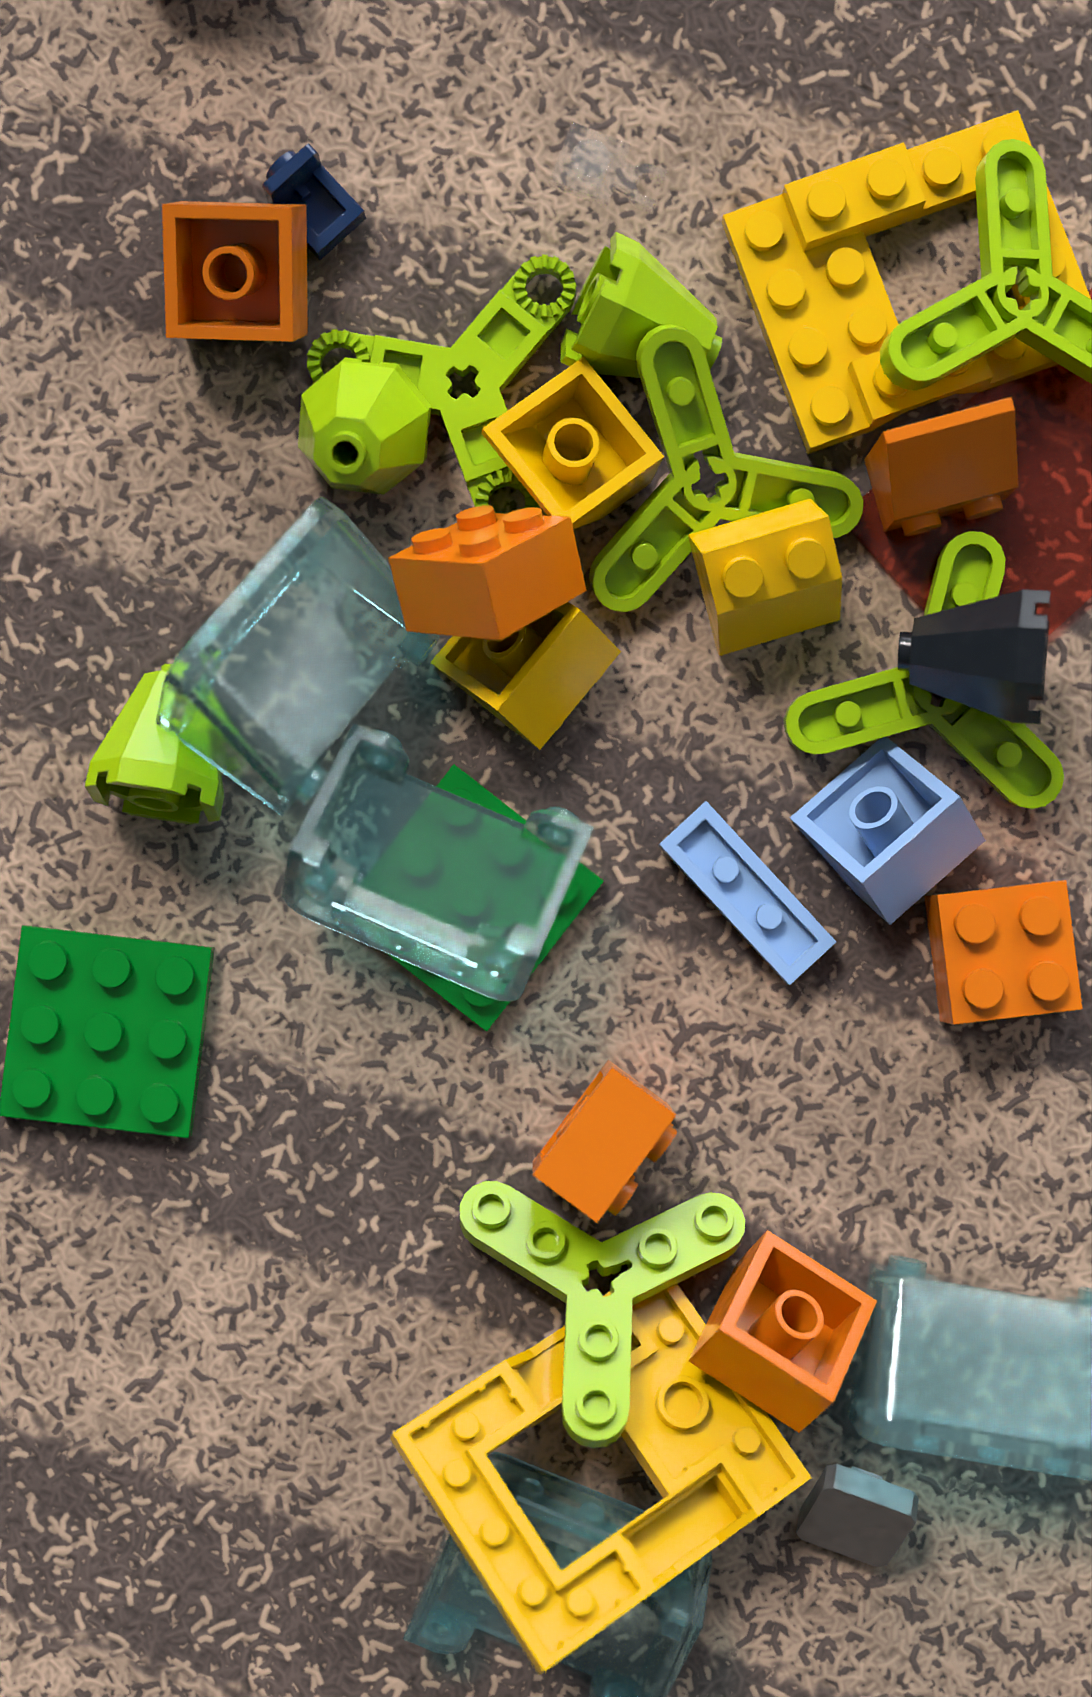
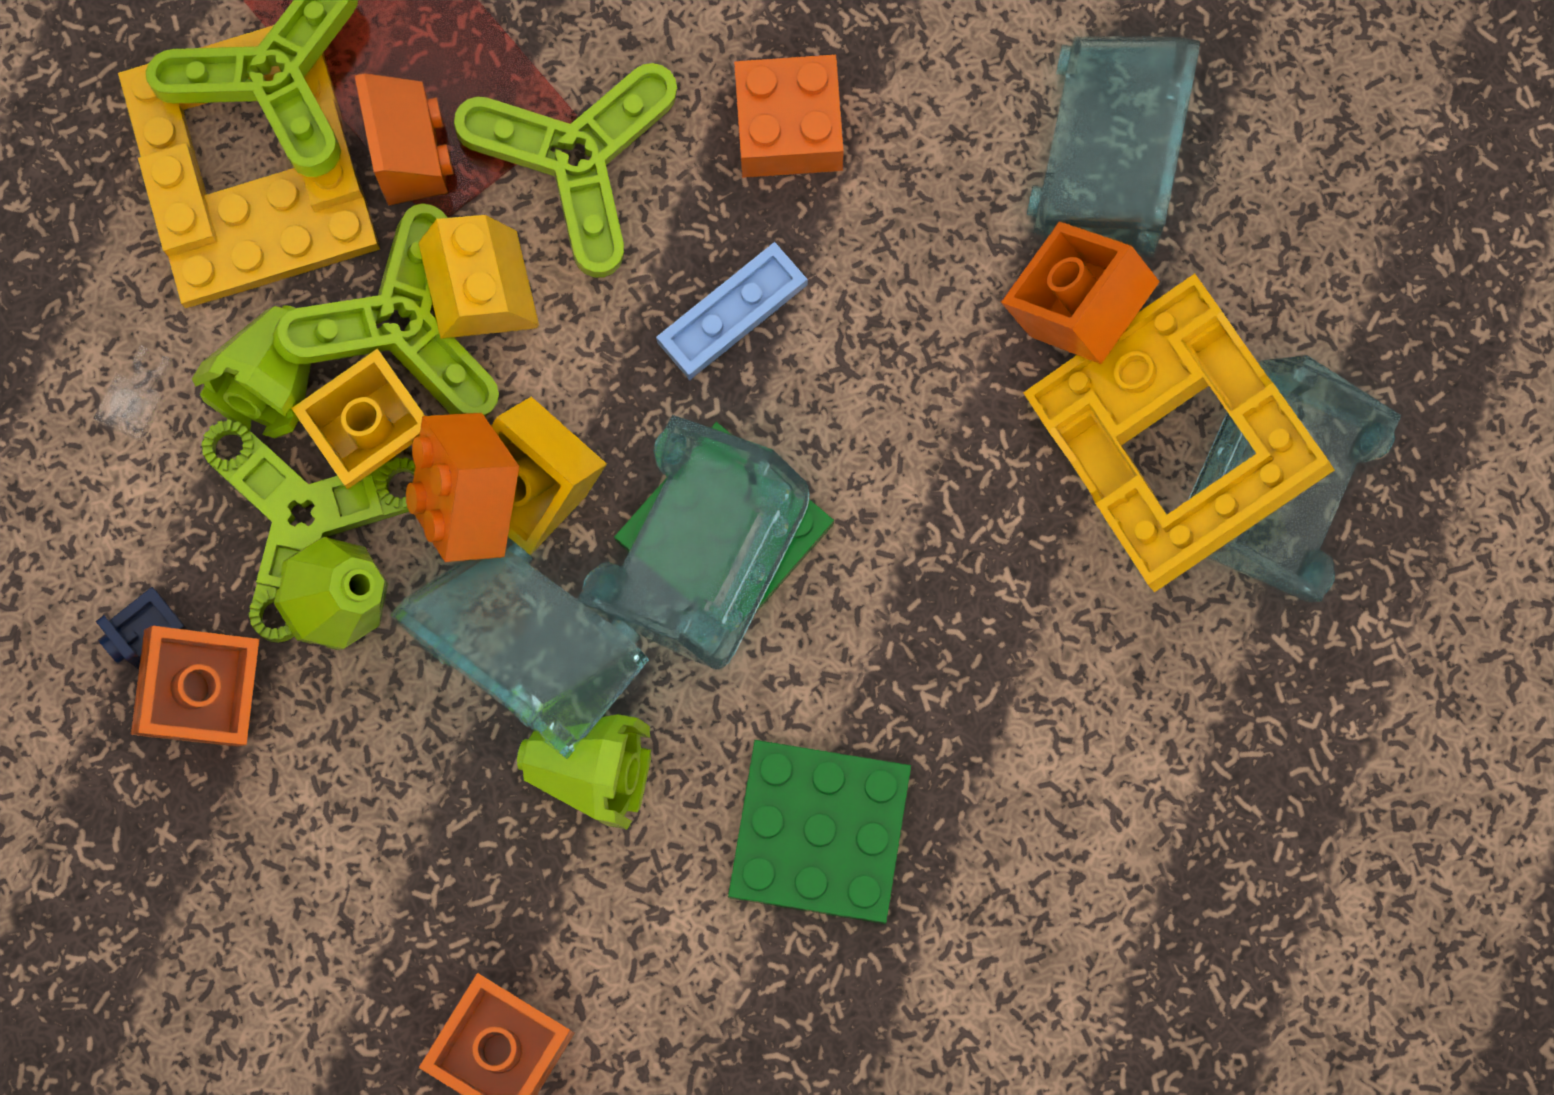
camera: 80 degrees left, 10 degrees down
(599, 1327) = (1073, 434): lime piece -> none
(604, 1142) = (924, 422): orange brick -> none
(857, 1515) = (1229, 247): flat silver piece -> none
(889, 828) = (686, 198): light blue slope -> none
(983, 654) = (554, 109): black cone -> none

